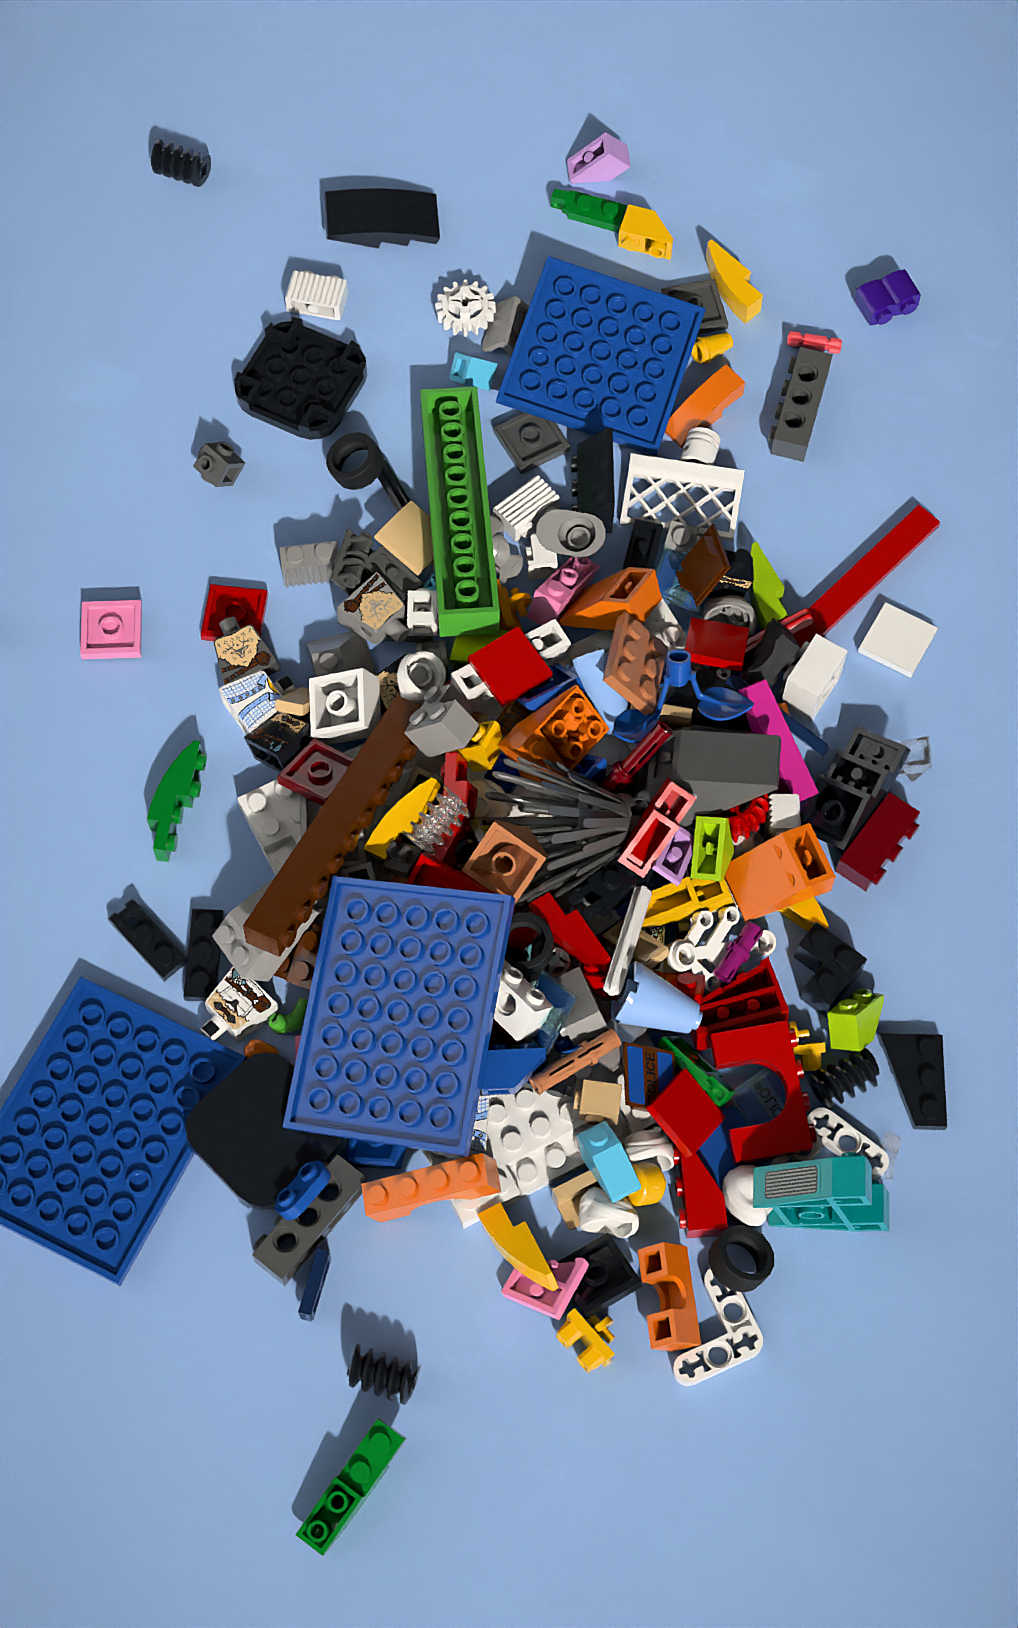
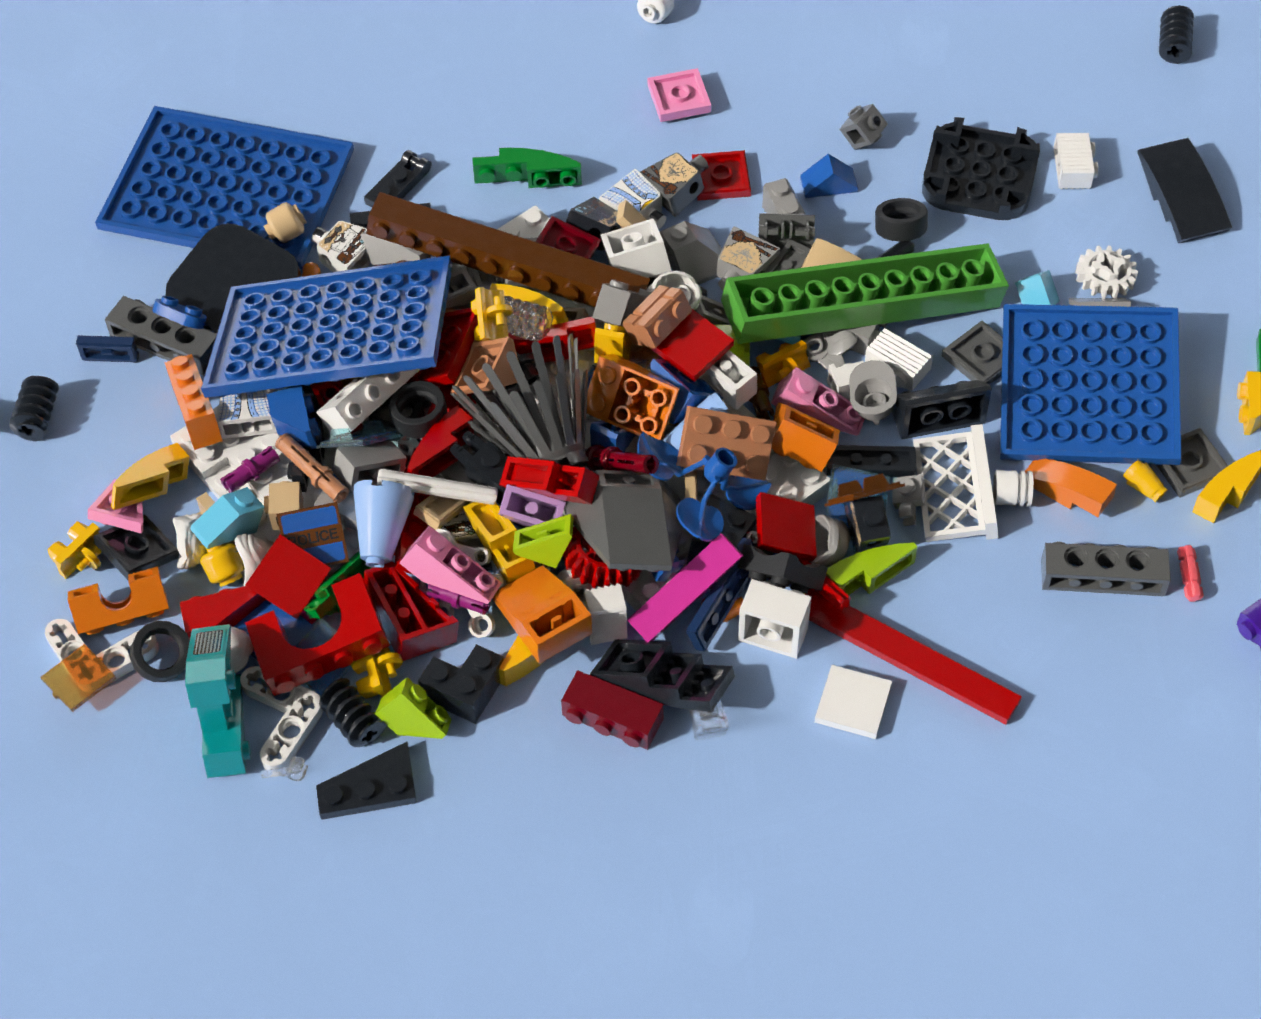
camera: 80 degrees right, 10 degrees down
(195, 1060) = (284, 222): none -> tan head
(273, 518) = (828, 178): none -> blue slope
(444, 837) = (491, 314): none -> yellow hips
(478, 685) = (657, 316): none -> nougat brick
(540, 1136) = (250, 469): none -> magenta pin
(717, 950) = (447, 567): none -> bright pink slope
(754, 1349) = (78, 678): none -> clear orange piece

